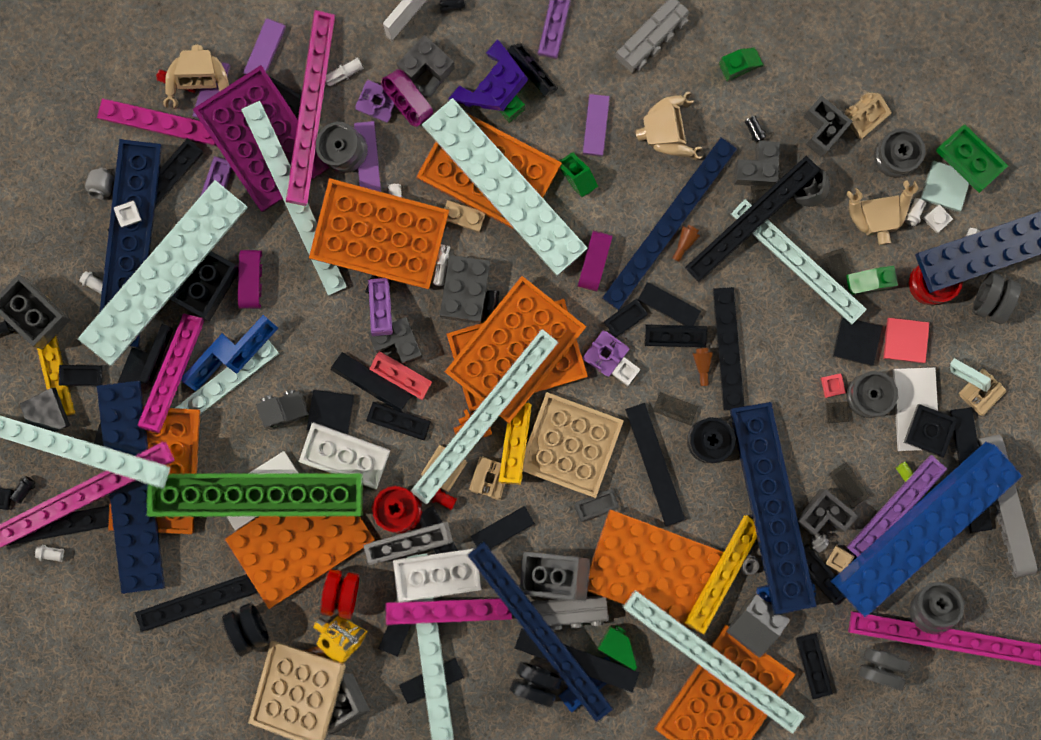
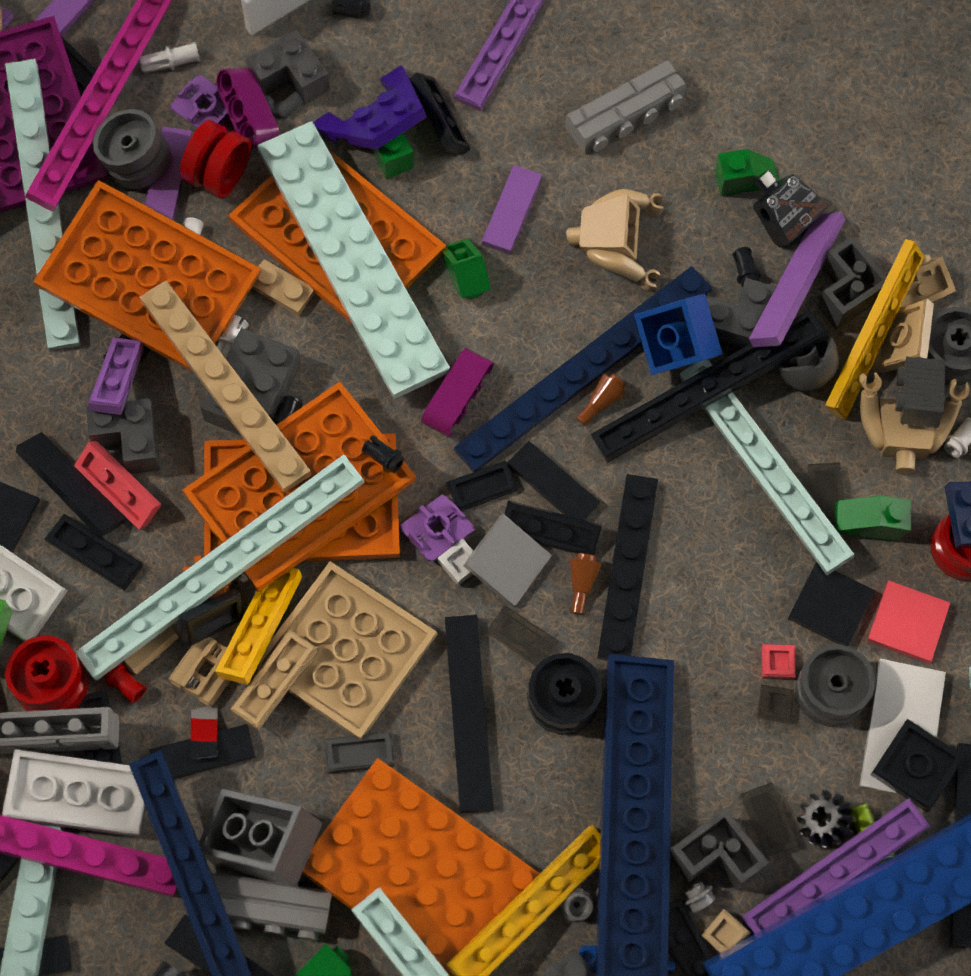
camera: 15 degrees right, 15 degrees down
(398, 141) = (215, 159): none -> red wheel
(451, 298) = (225, 386): none -> tan plate
(485, 447) = (211, 617): none -> black tile
(500, 517) = (204, 732): none -> sticker
(534, 476) = (273, 680): none -> tan tile
(563, 319) = (383, 454): none -> black pin
(654, 364) = (507, 560): none -> light grey tile
(726, 191) = (678, 334): none -> blue brick
(773, 82) = (786, 207): none -> torso
(792, 133) = (796, 280): none -> medium lavender tile
(848, 155) = (875, 329): none -> yellow tile
(866, 155) = (906, 337): none -> tan tile
(887, 193) = (922, 391): none -> dark grey brick
(887, 471) = (834, 829): none -> black gear

